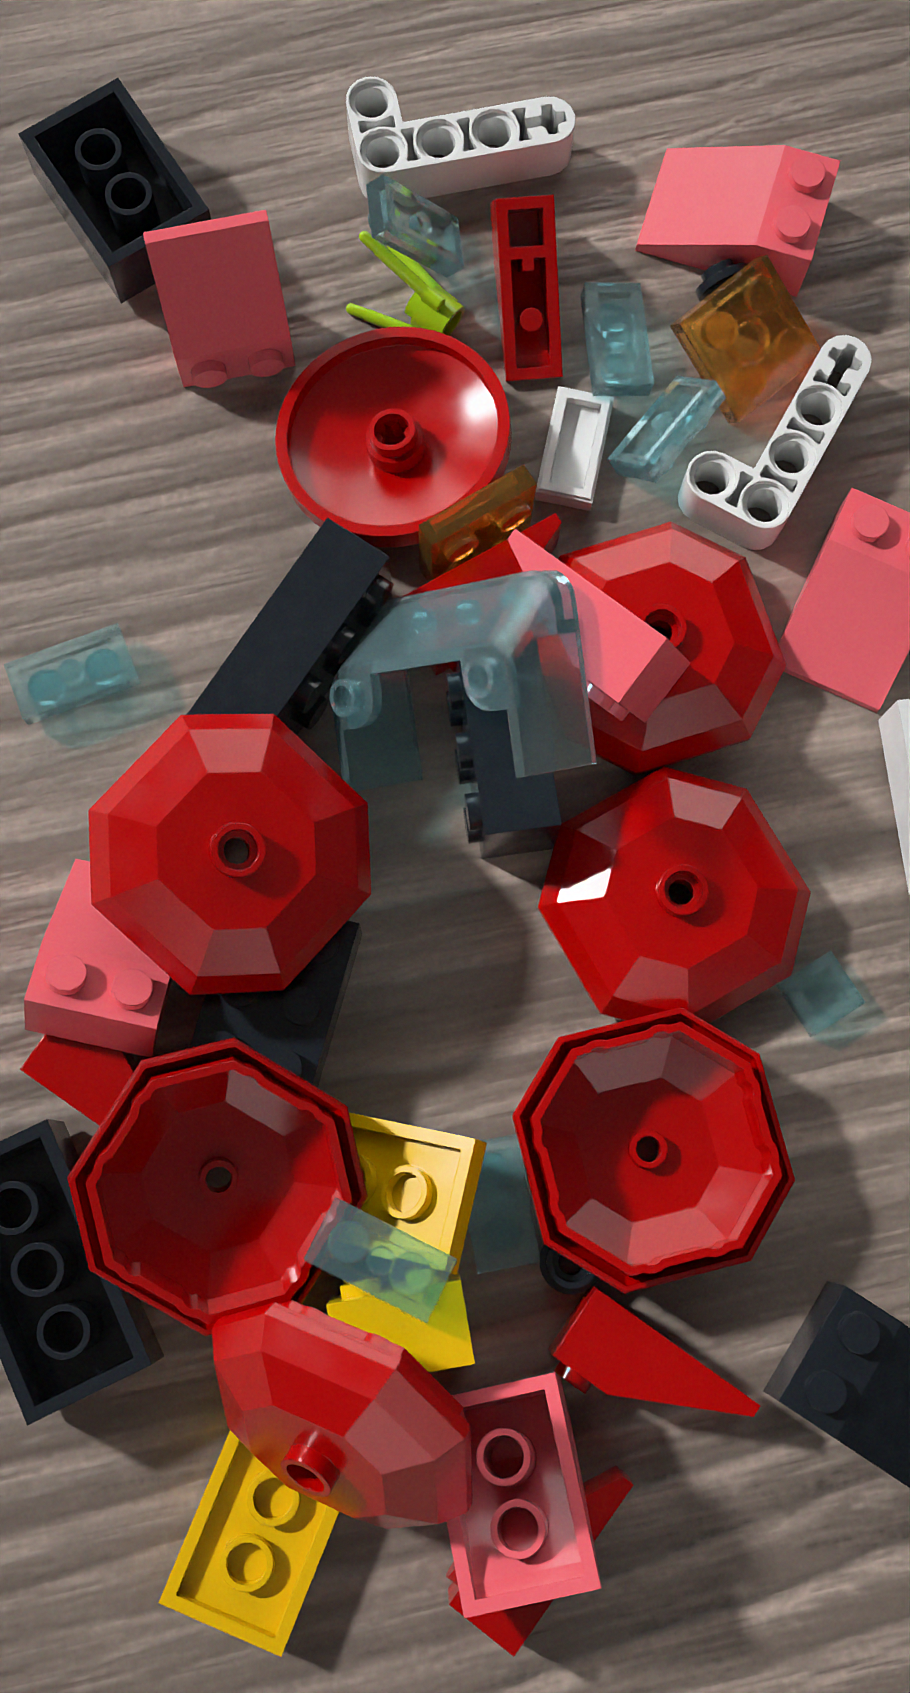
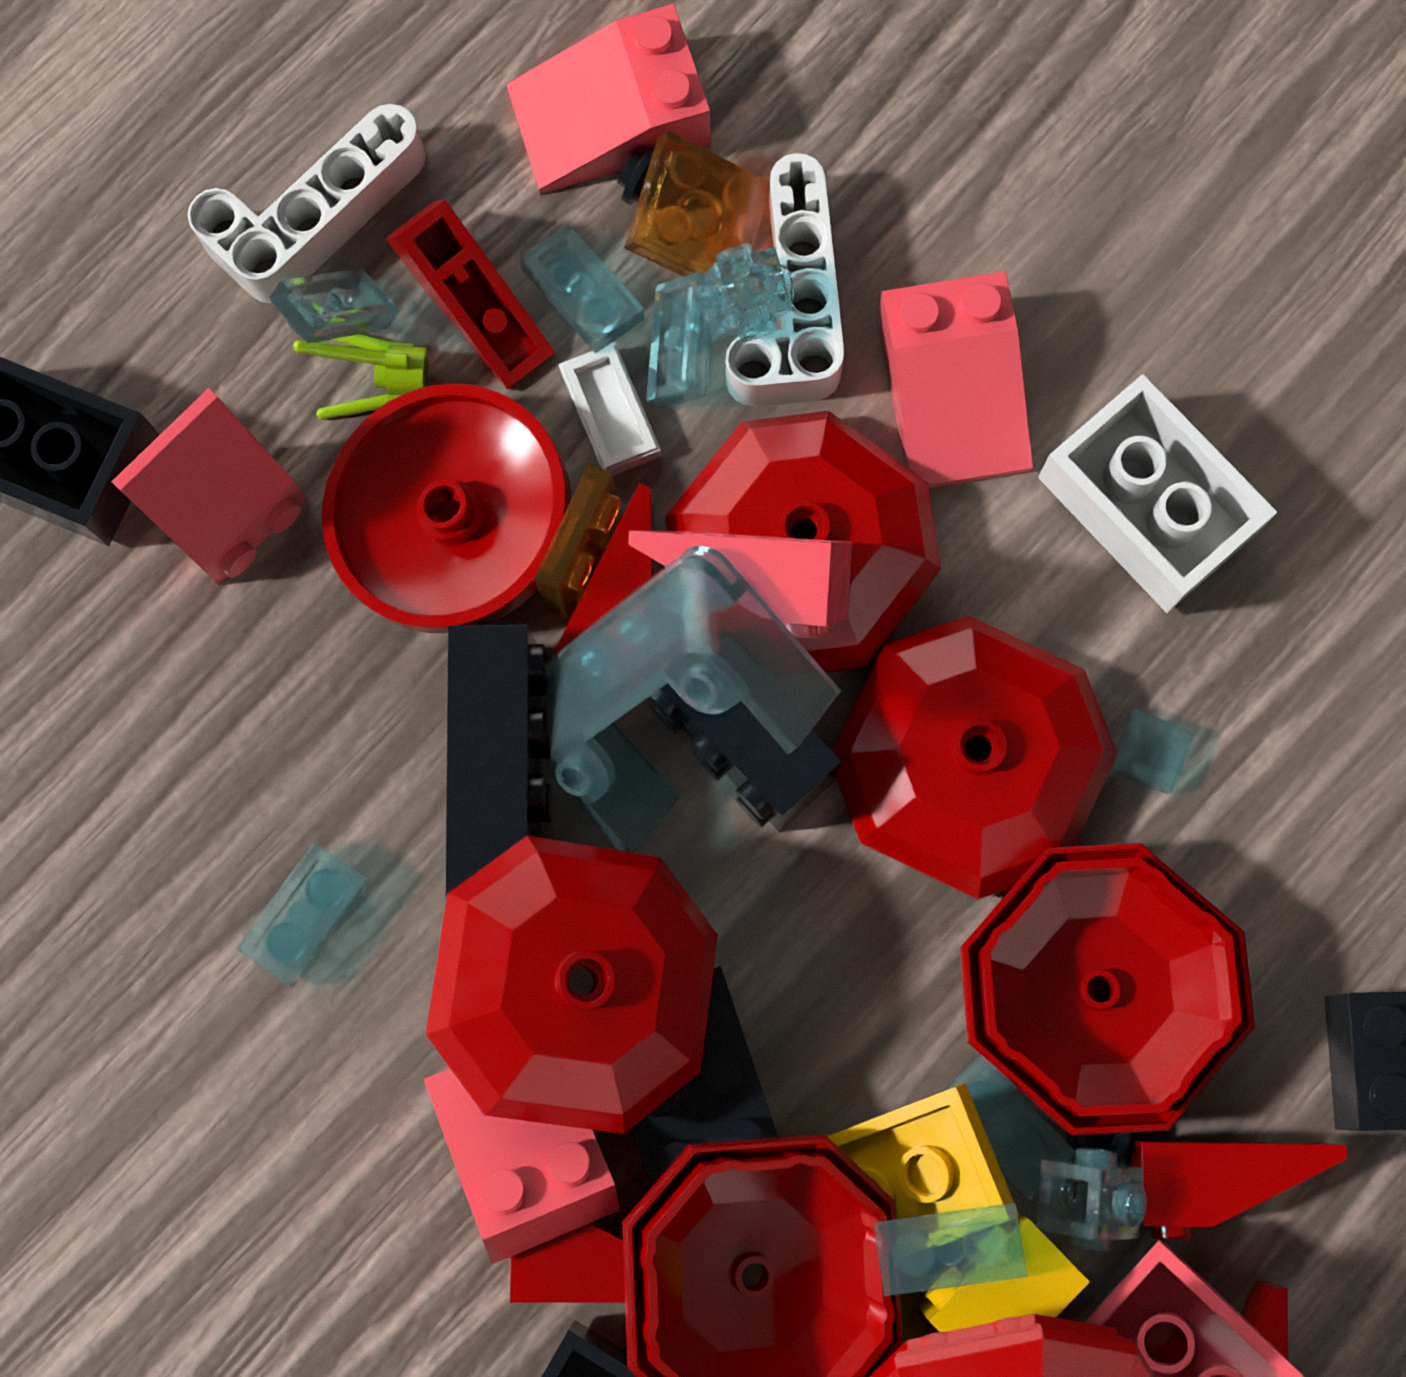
camera: 25 degrees left, 0 degrees up
(524, 1304) = (1091, 1199): none -> clear light blue brick
(723, 421) = (745, 293): none -> clear light blue brick

